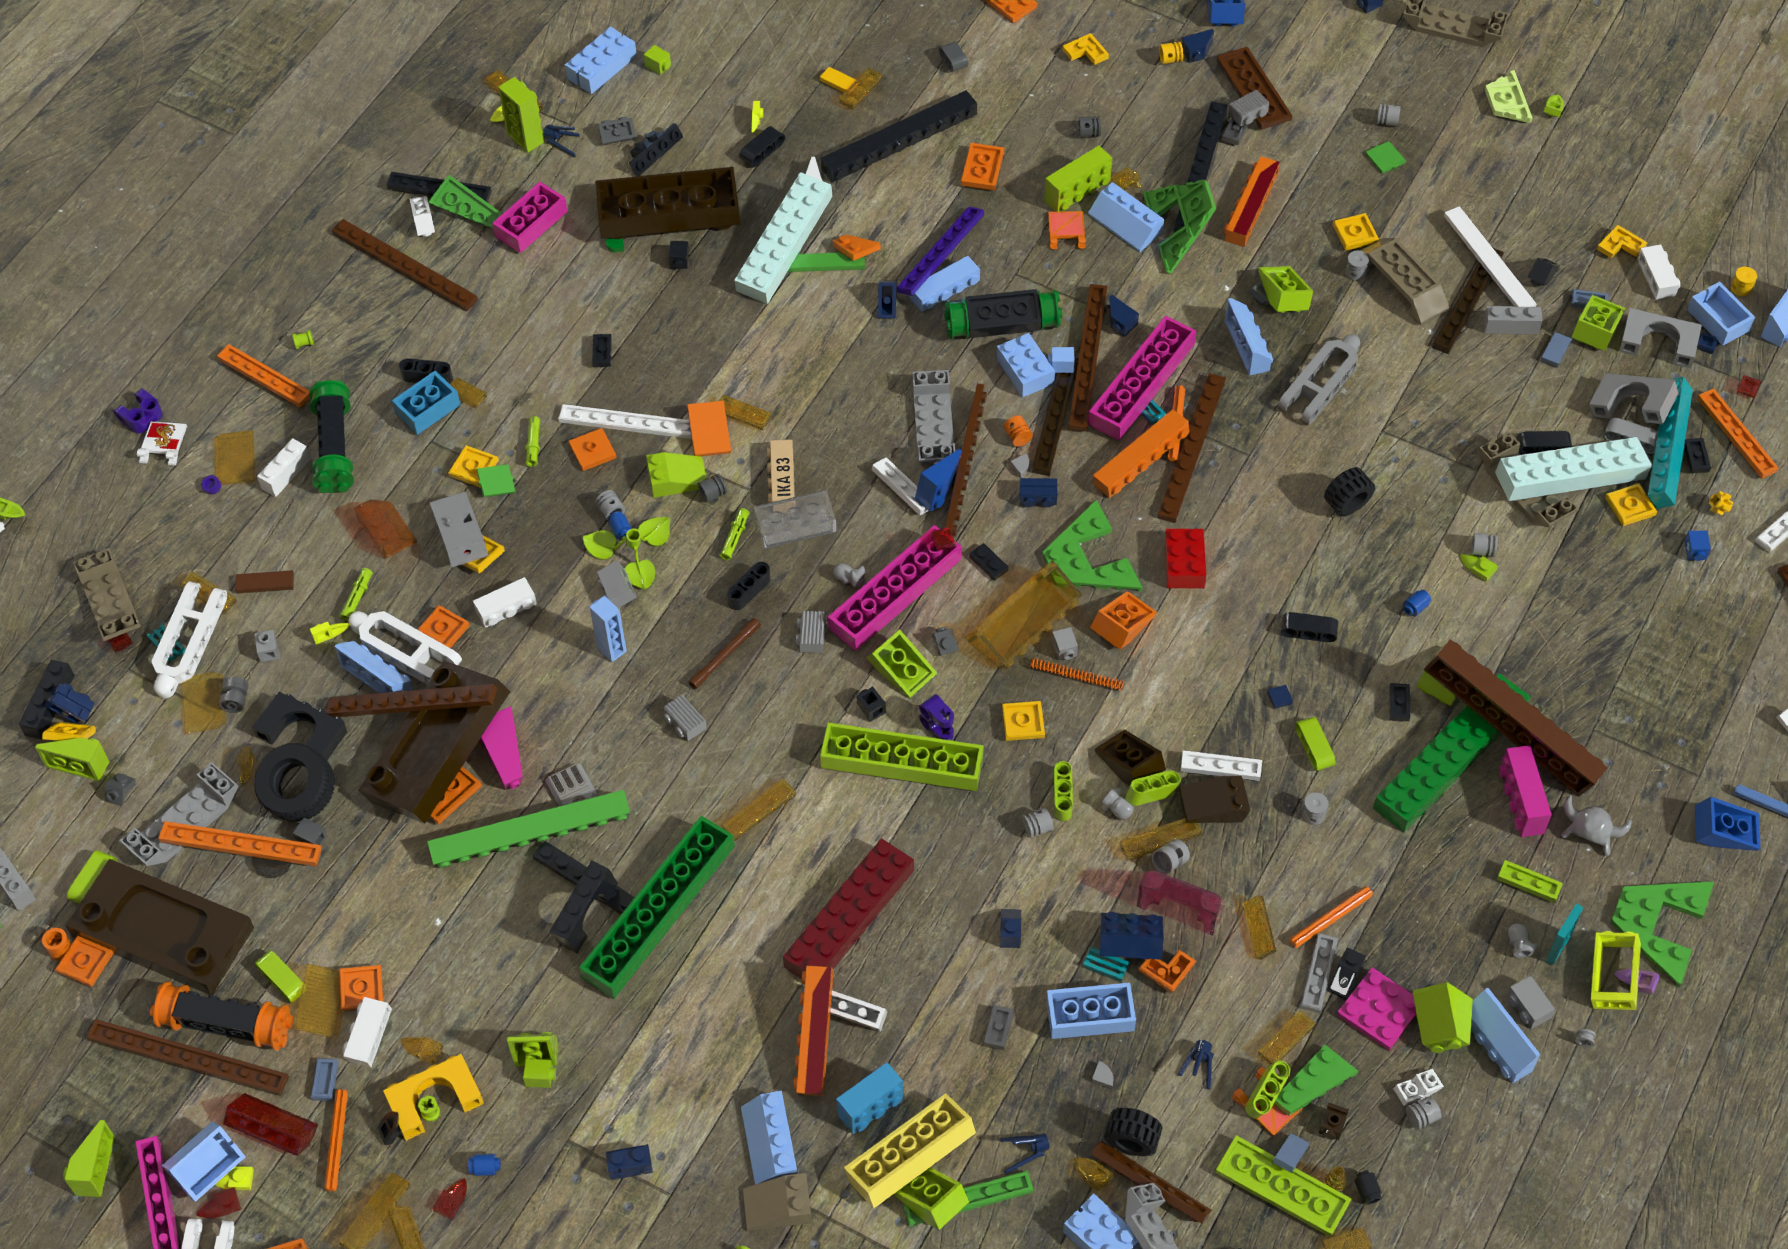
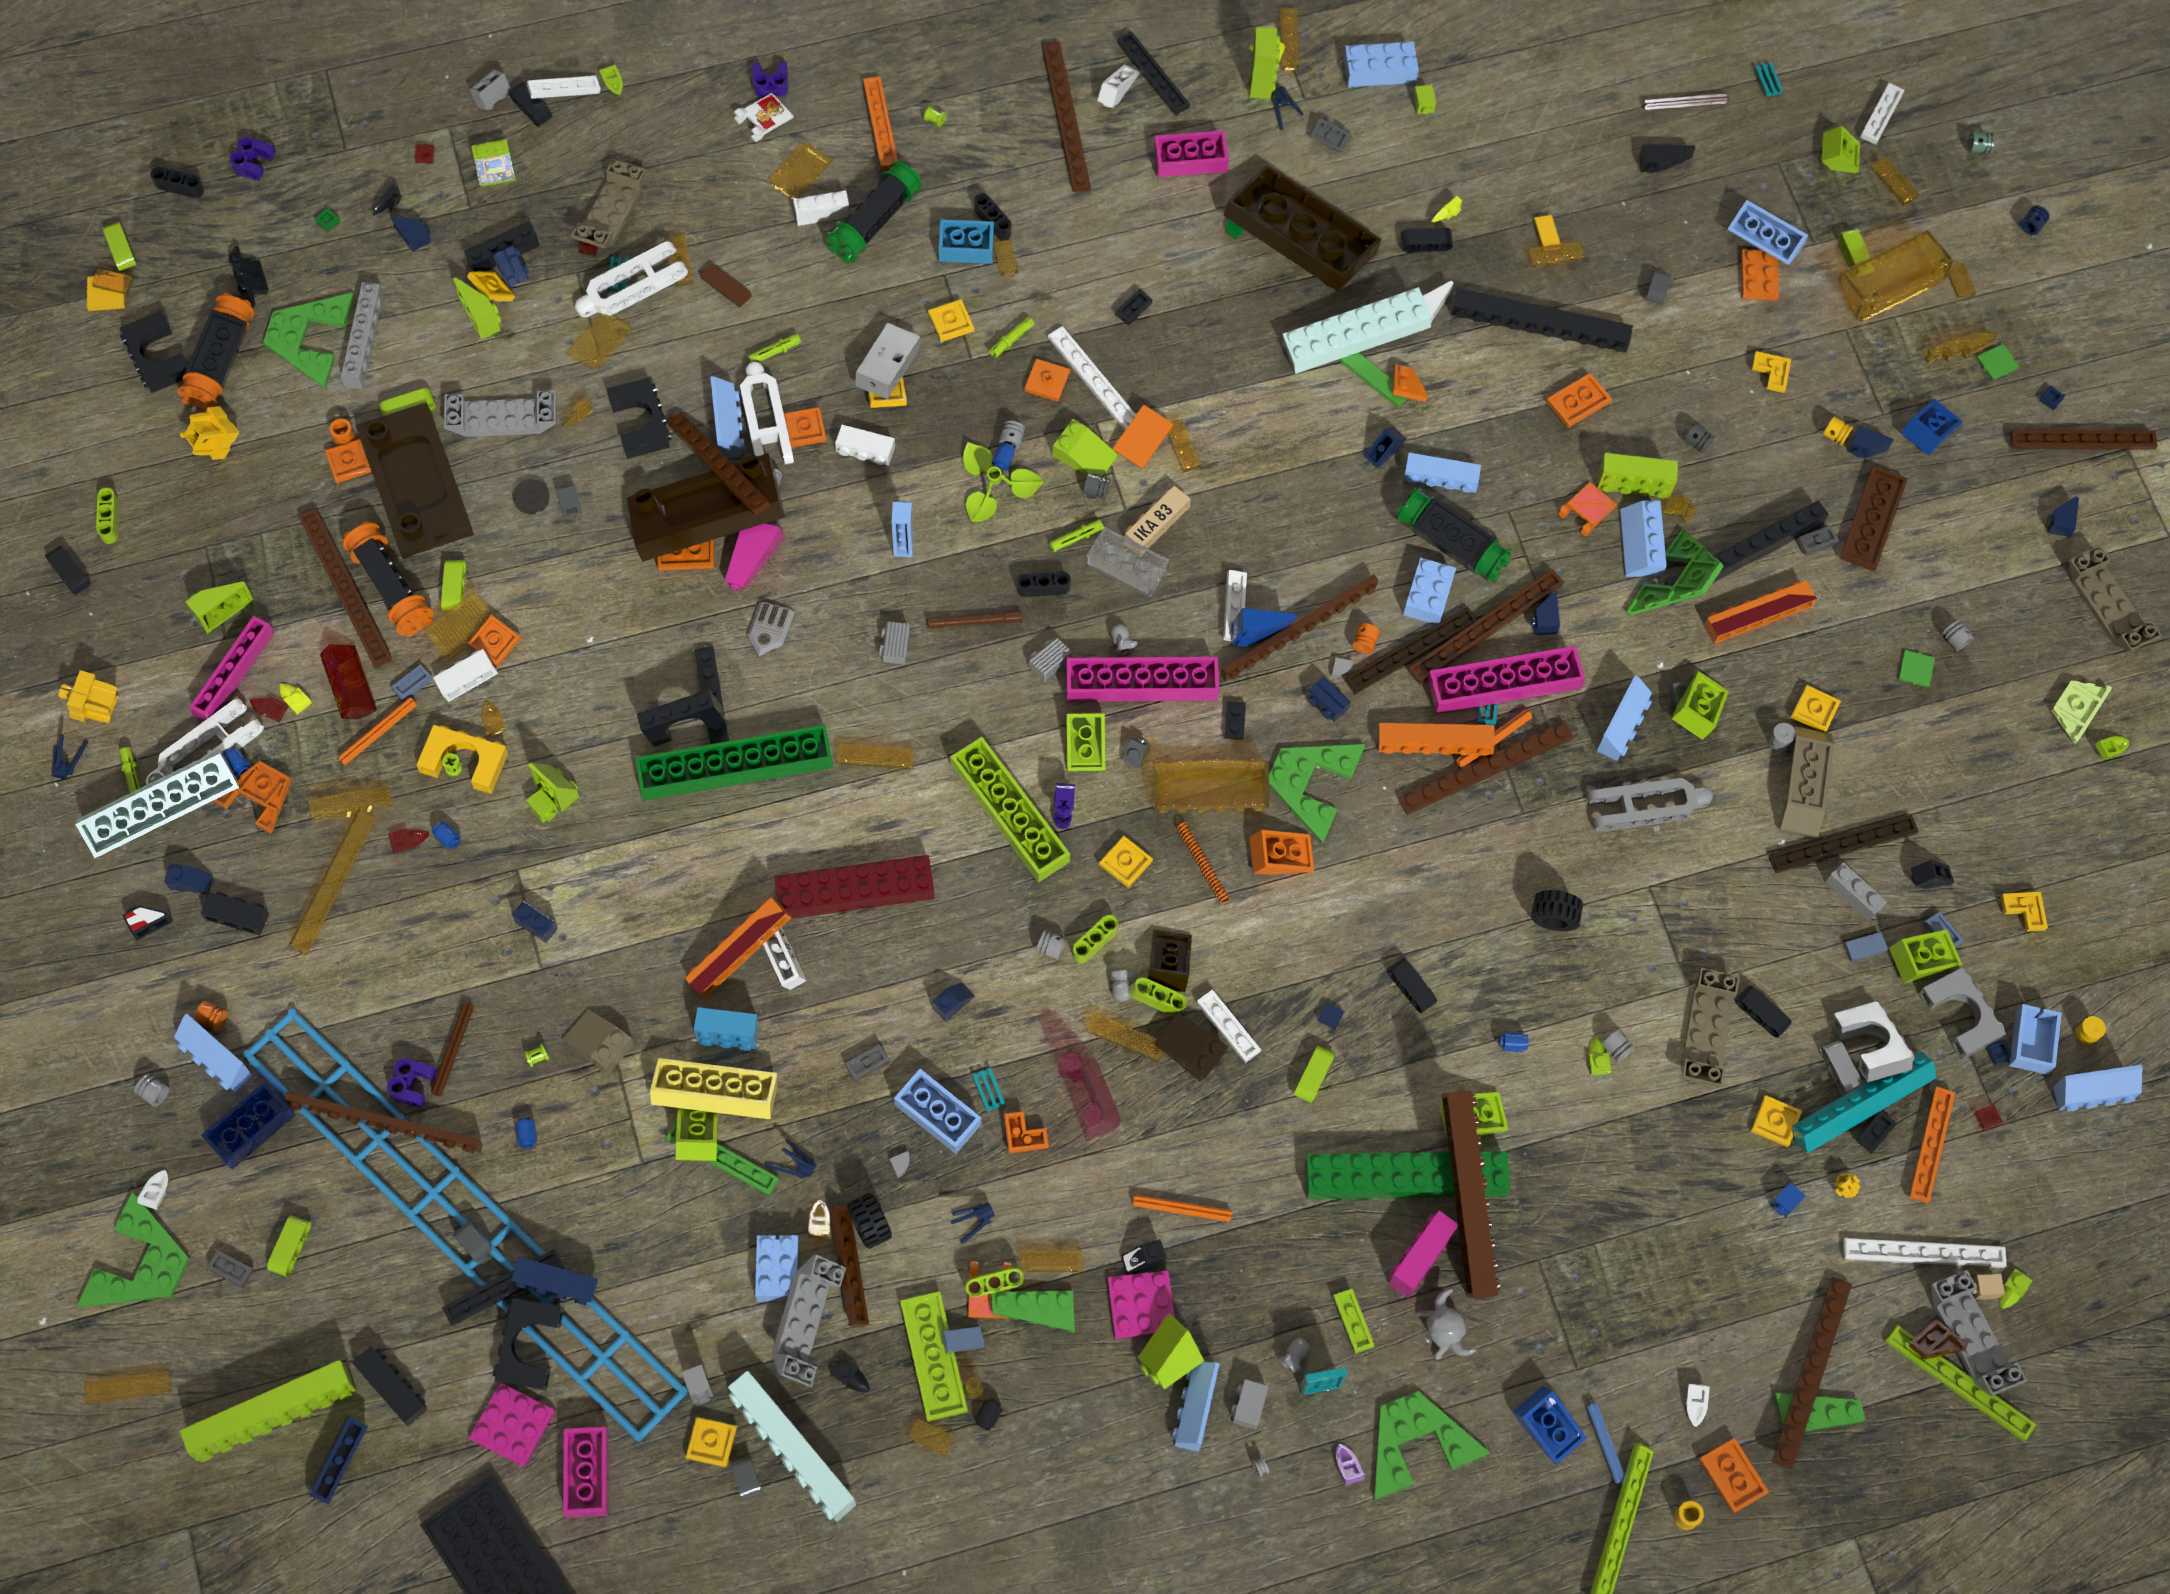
camera: 40 degrees right, 10 degrees up
(117, 788) = (485, 354): dark grey bracket -> none
(203, 1161) = (281, 668): light blue piece -> none
(211, 484) = (762, 178): dark purple tile -> none
(233, 694) = (620, 353): flat silver wheel -> none
(240, 843) = (518, 467): orange plate -> none
(267, 646) = (678, 335): light grey brick -> none
(273, 769) = (574, 442): black tyre -> none
(324, 631) = (724, 358): neon yellow plate -> none
(384, 527) = (844, 314): clear orange slope -> none
(389, 1127) = (413, 754): black plate -> none
(463, 202) = (1155, 96): bright green wing -> none
(495, 480) = (954, 345): bright green piece -> none
(528, 828) = (709, 627): bright green brick -> none
(616, 584) = (953, 500): light grey brick -> none
(653, 147) = (1343, 172): black bracket -> none
(679, 254) = (1269, 277): black brick -> none
(768, 1137) = (639, 993): light blue slope -> none
(871, 703) = (1030, 757): black brick -> none
(933, 415) = (1315, 573): light grey slope -> none
(940, 251) = (1466, 442): dark purple tile -> none
(943, 539) = (1208, 673): clear red plate -> none
(1062, 359) = (1459, 611): light blue brick -> none
(1065, 644) = (1217, 832): light grey brick -> none
(1131, 935) = (1022, 1086): dark blue brick -> none
(1170, 856) = (1114, 1057): light grey wheel -> none
(1185, 558) = (1378, 848): red brick -> none
(1248, 108) = (1843, 532): light grey brick -> none
(1259, 927) = (1121, 1166): clear yellow plate -> none
(1315, 808) = (1258, 1120): light grey piece -> none
(1319, 973) = (1128, 1238): light grey tile -> none
(1336, 1114) = (1024, 1348): dark brown brick -> none
(1399, 702) = (1413, 1102): black plate -> none
(1418, 1088) = (1104, 1383): white slope -> none
(1423, 1112) = (1084, 1403): light grey piece -> none
(1489, 258) = (1896, 827): white tile -> none
(1573, 469) = (1757, 1051): light aqua brick -> none
(1615, 1000) = (1327, 1428): neon yellow window -> none
(1658, 272) = (2028, 960): white brick -> none

